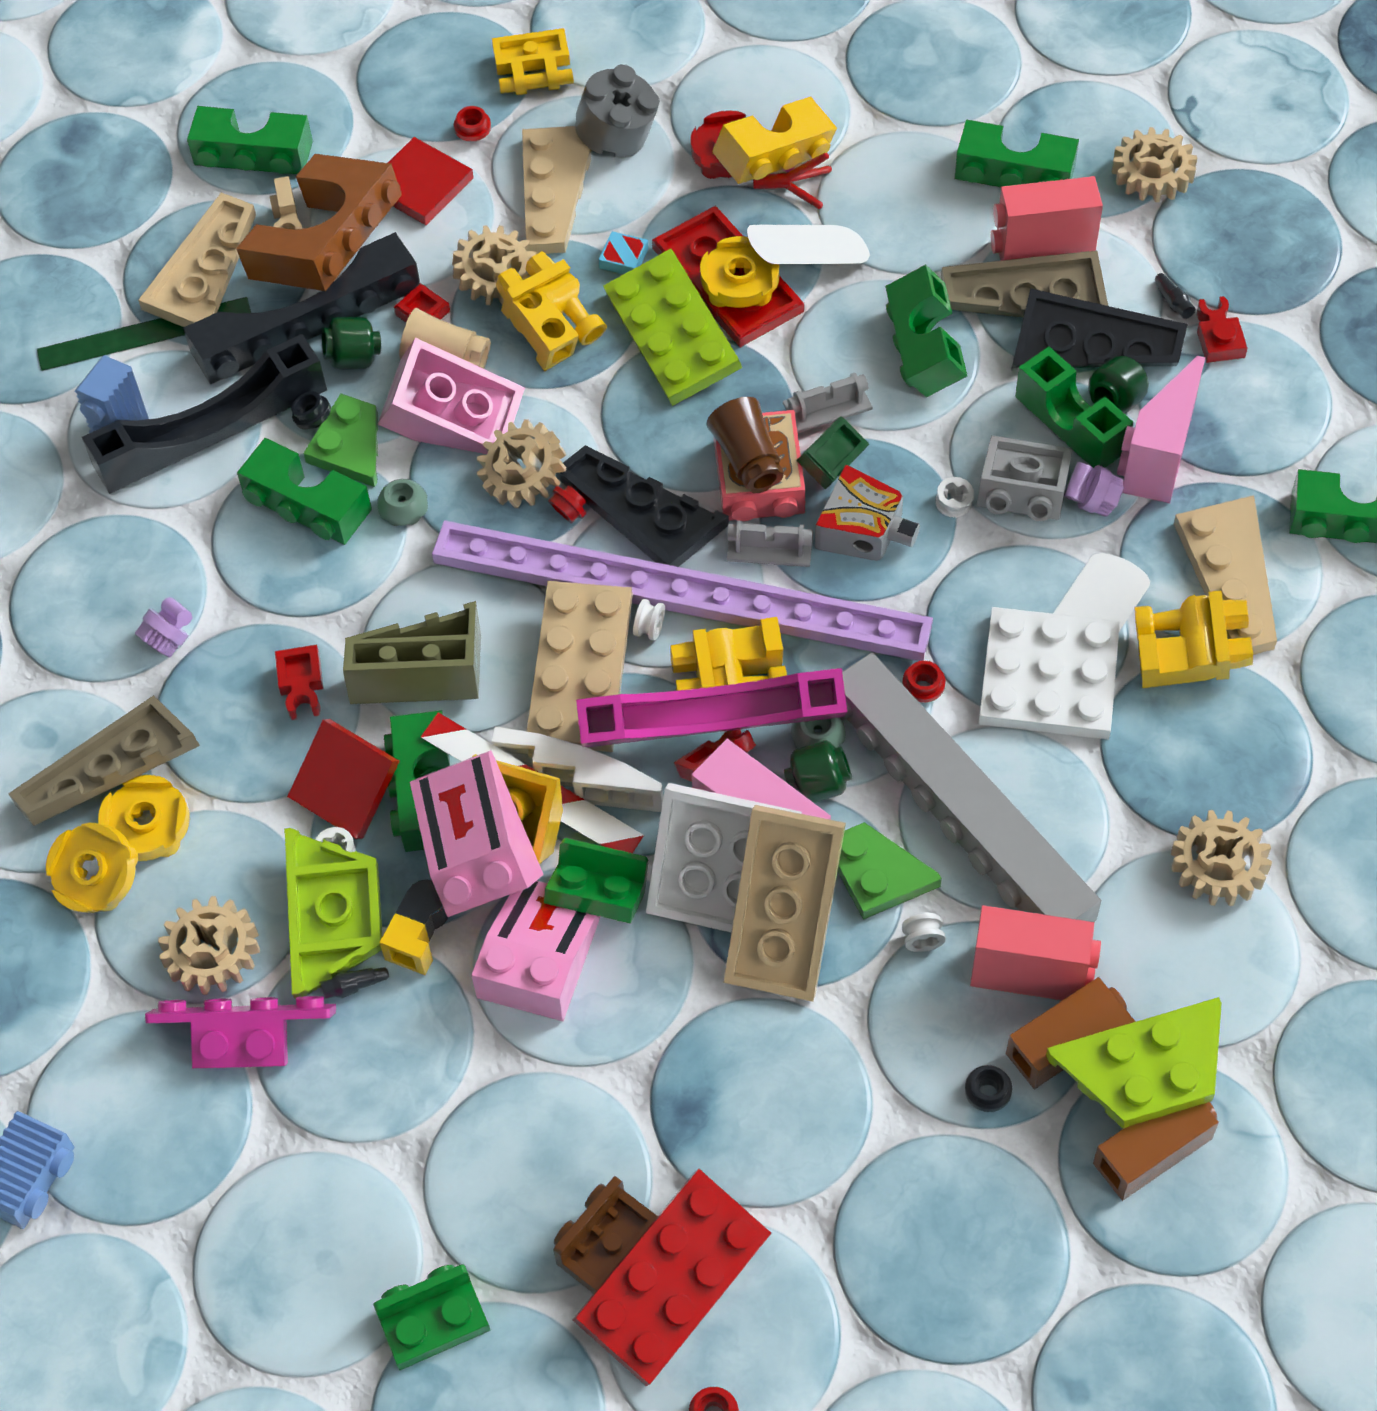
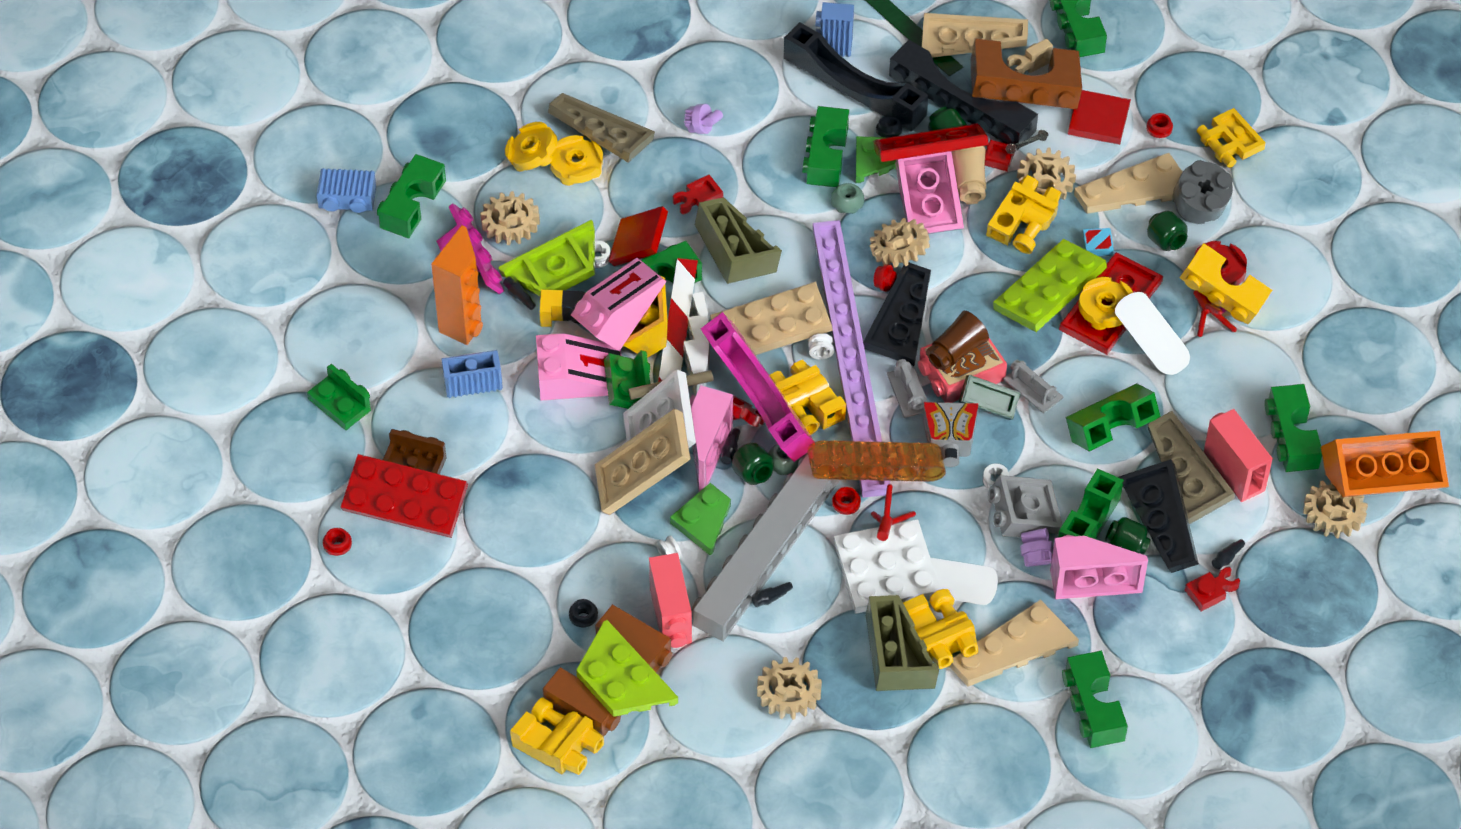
camera: 65 degrees right, 5 degrees down
(110, 1102) = (418, 179): none -> green arch
(350, 1042) = (457, 289): none -> orange slope
(388, 359) = (930, 142): none -> red tile
(427, 286) = (1042, 135): none -> clear smoke hinge
(489, 1095) = (472, 373): none -> medium blue brick
(649, 823) = (693, 379): none -> dark tan bar
(651, 172) = (1167, 231): none -> dark green head
(896, 614) = (876, 461): none -> clear orange beam
(991, 640) = (886, 520): none -> red plant
(1045, 823) = (771, 594): none -> black piece
(1121, 87) = (1386, 463): none -> orange slope
(1203, 702) = (895, 647): none -> olive wedge
(1220, 1197) = (563, 744): none -> yellow hips

